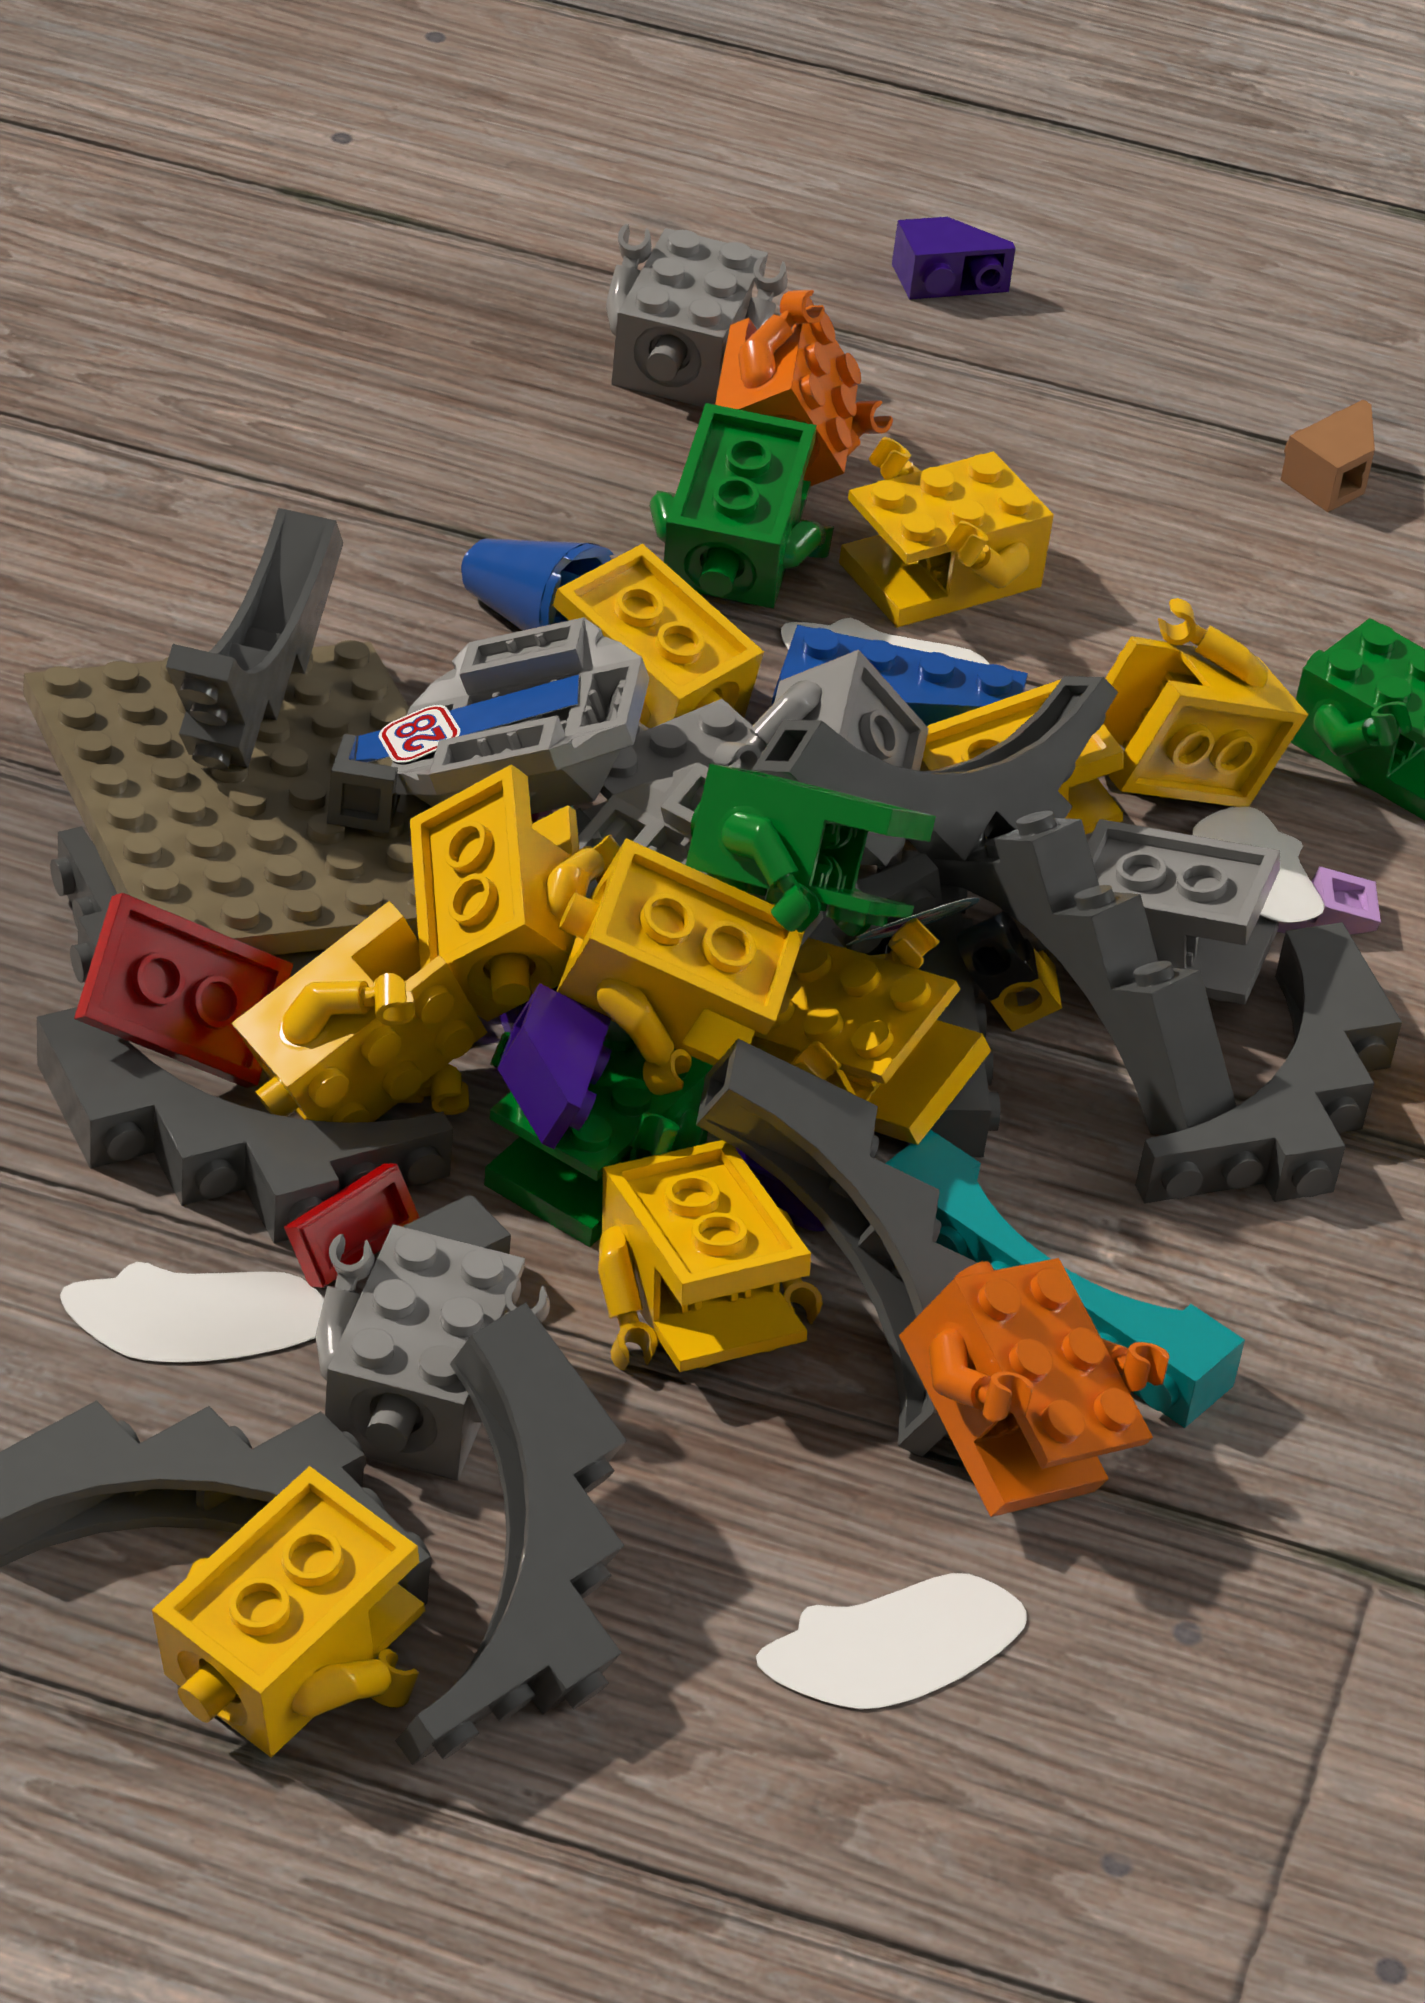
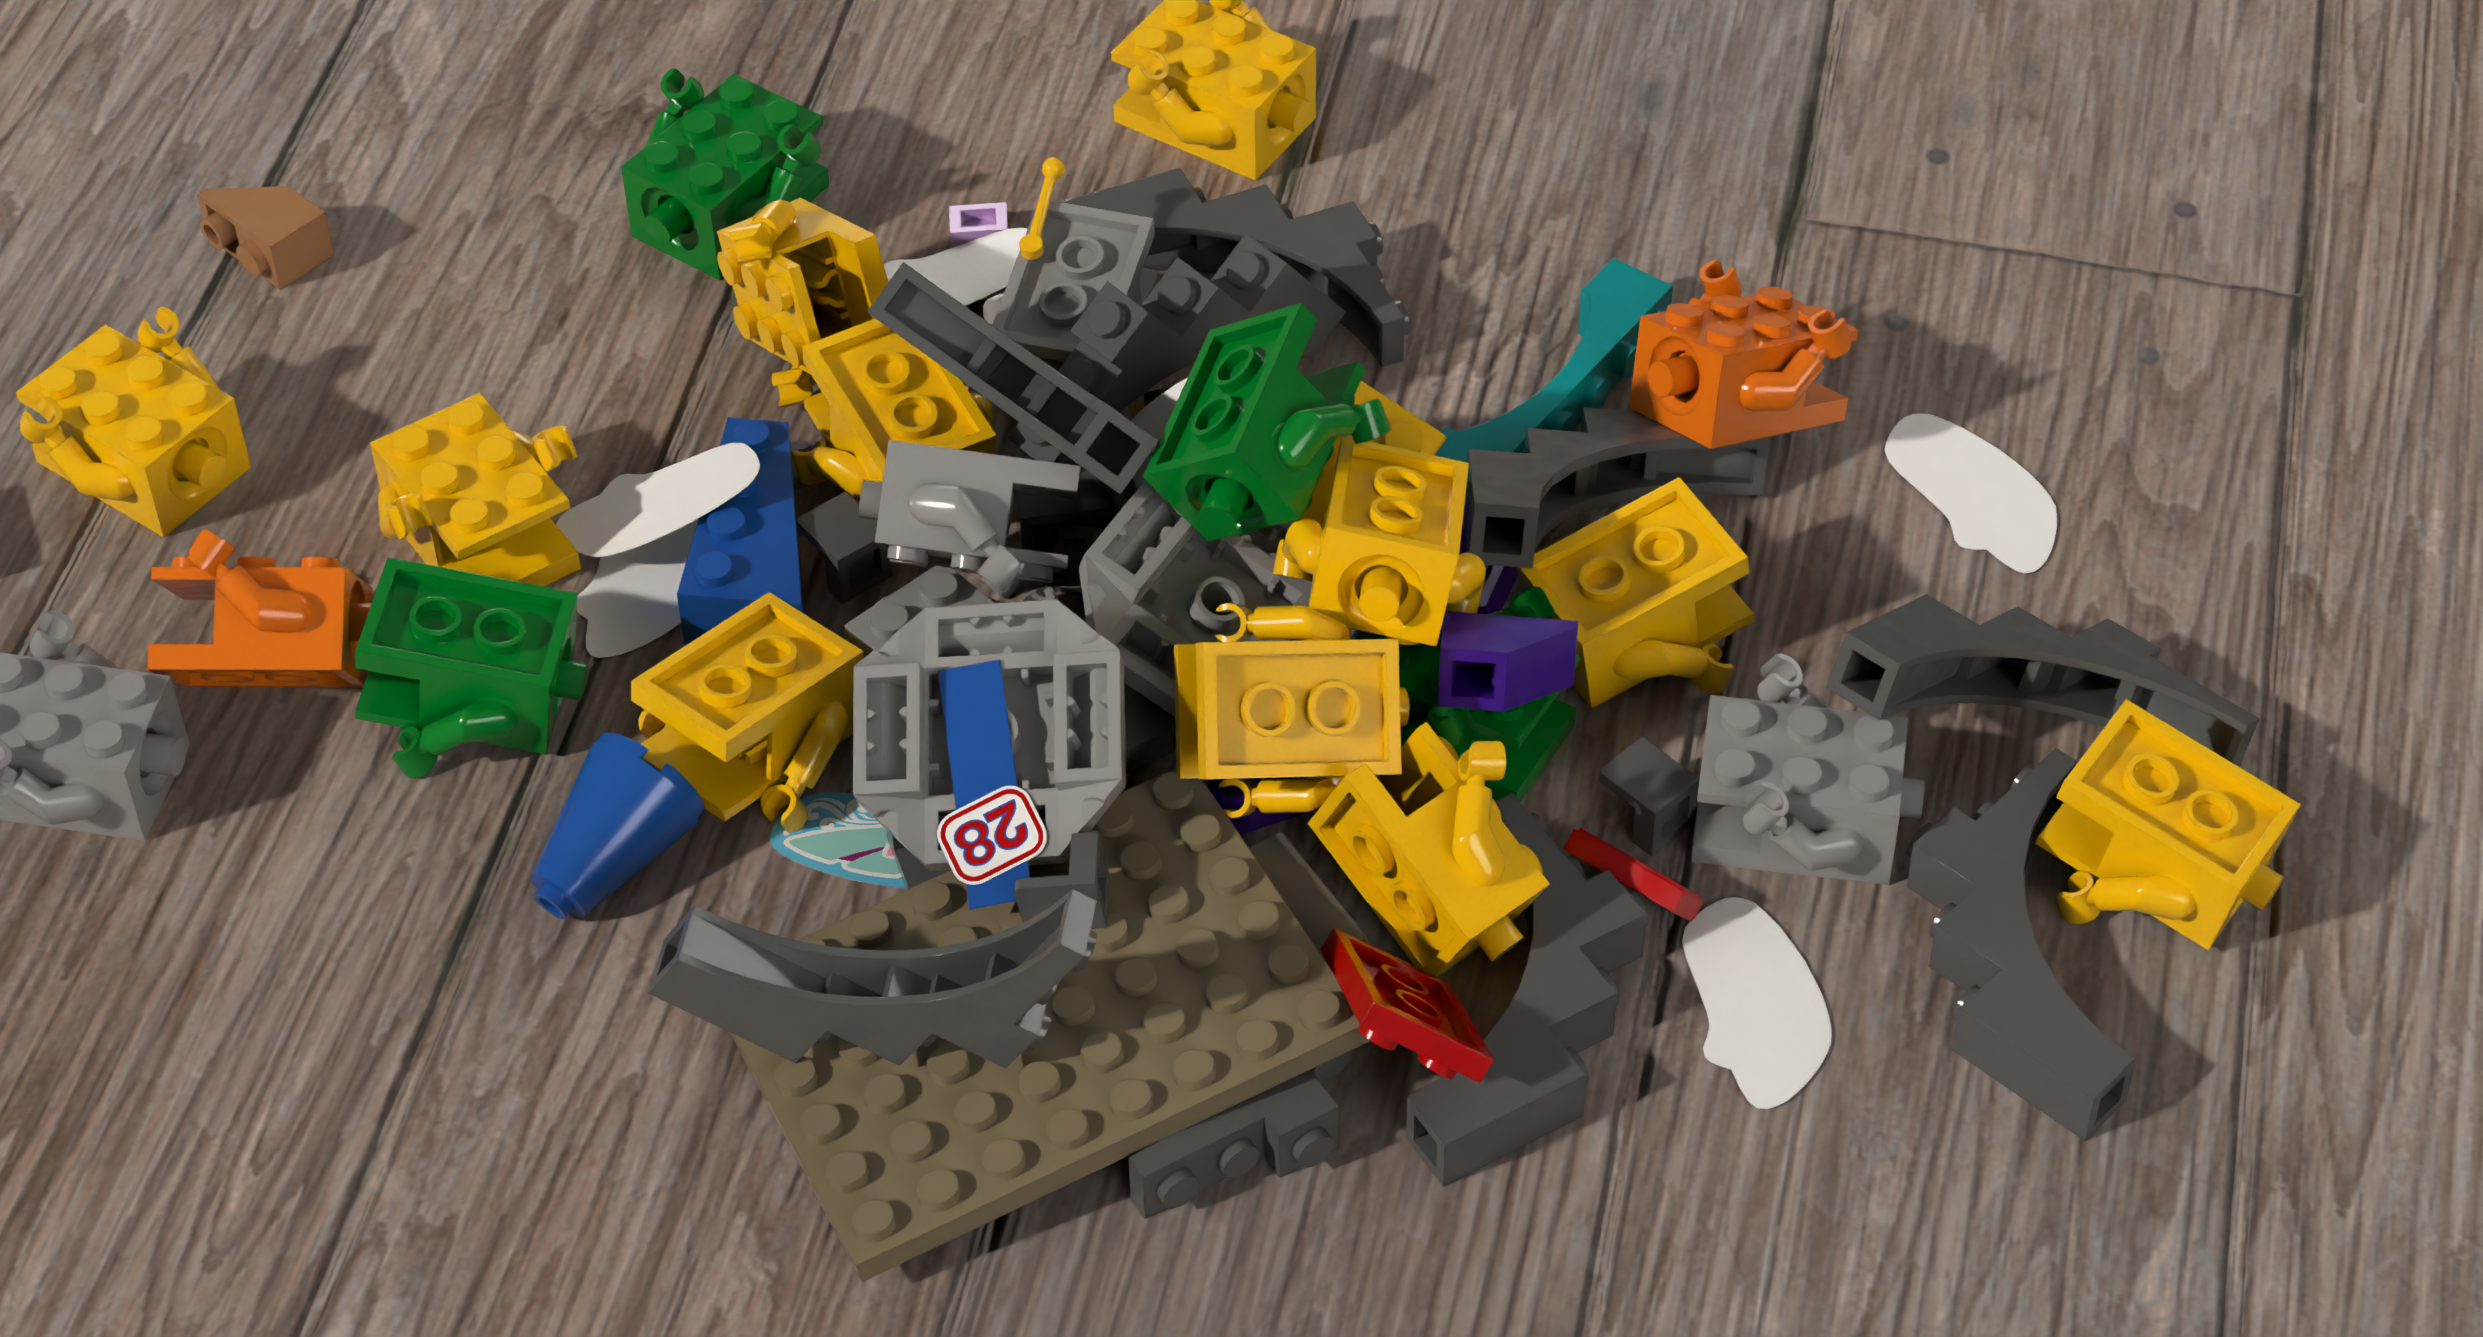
camera: 90 degrees left, 5 degrees up
(932, 635) = (653, 504): none -> white sticker
(1059, 359) = (137, 426): none -> yellow torso
(1211, 841) = (1032, 244): none -> yellow hinge

